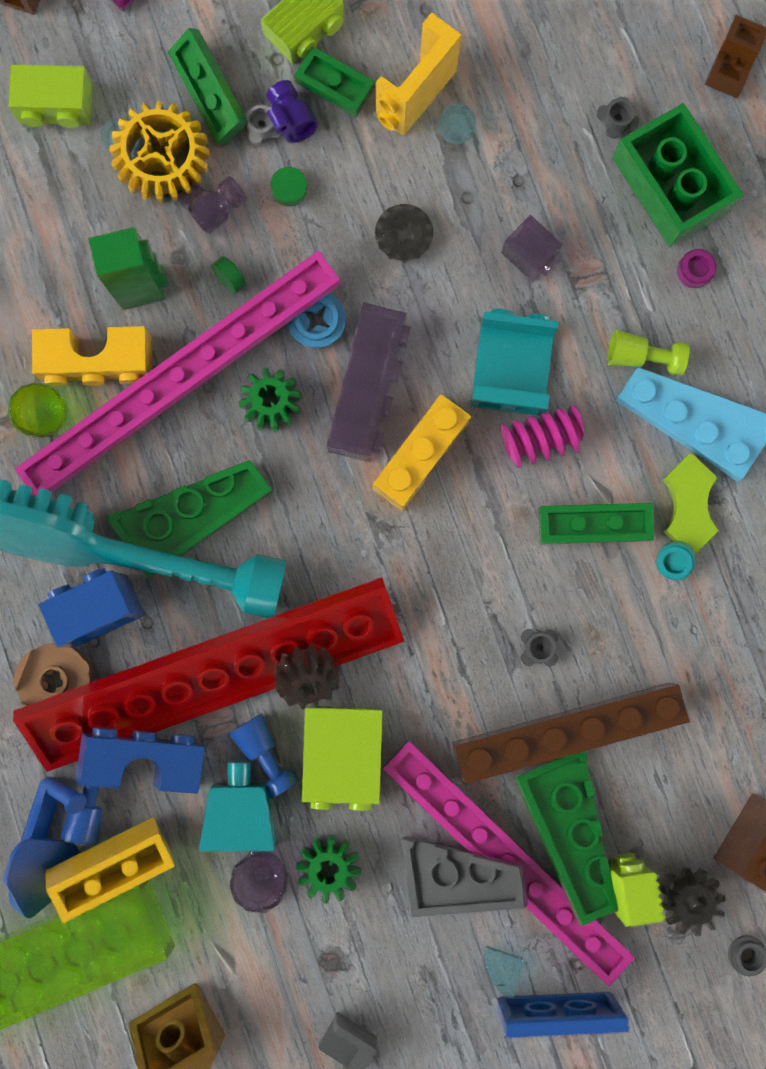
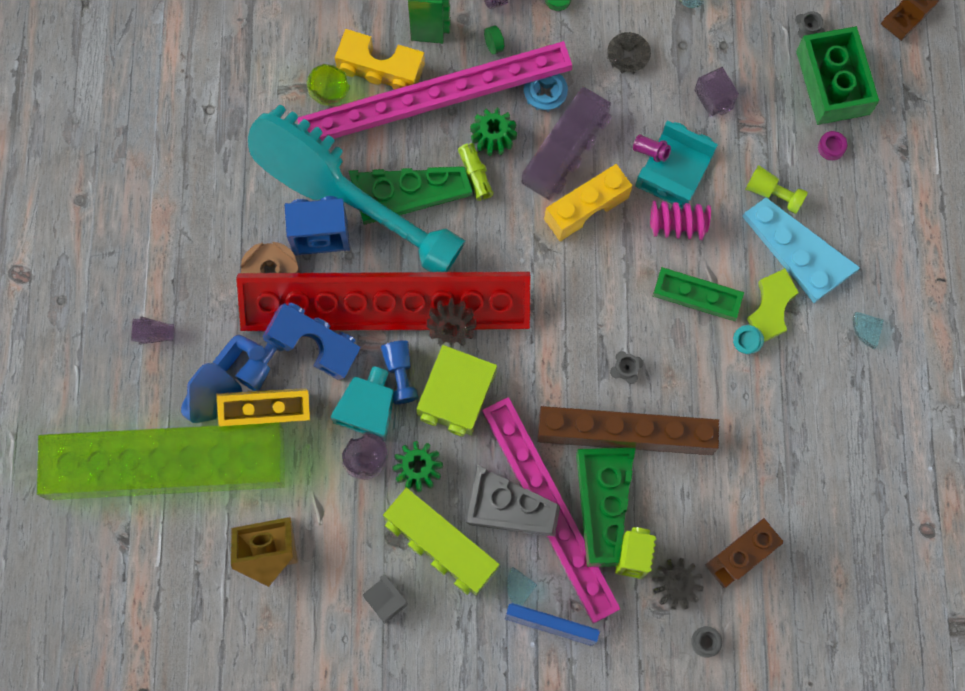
camera: 20 degrees right, 10 degrees down
(266, 459) = (475, 171): none -> lime pin
(391, 954) = (440, 541): none -> lime brick
(476, 352) = (658, 150): none -> magenta pin

